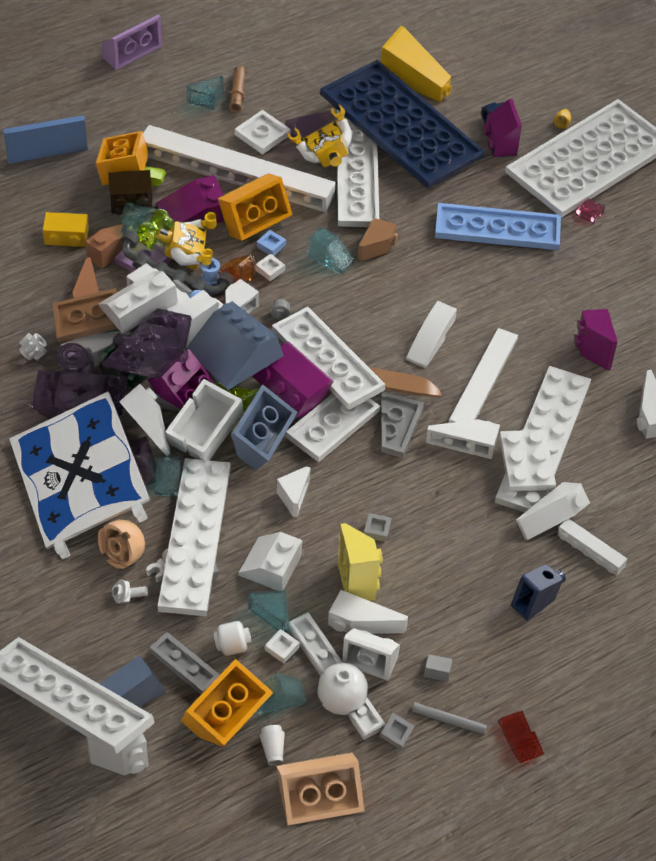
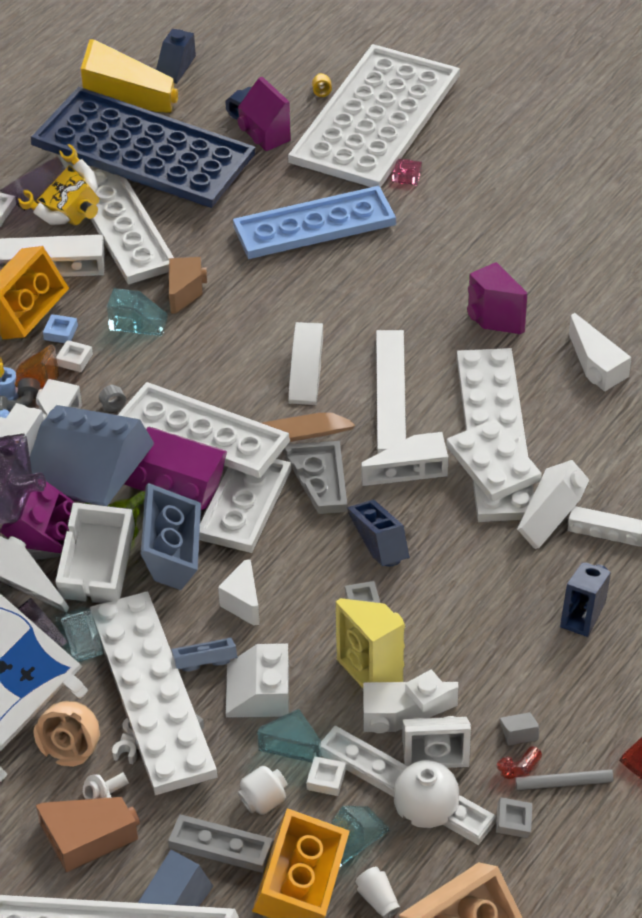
camera: 20 degrees left, 5 degrees down
(101, 616) = (87, 828): none -> nougat slope
(244, 523) = (214, 652): none -> sand blue plate
(381, 614) = (427, 690): none -> white plate
(415, 483) = (380, 532): none -> dark blue slope
(423, 697) = (521, 767): none -> clear red arm
(464, 58) = (176, 54): none -> dark blue slope

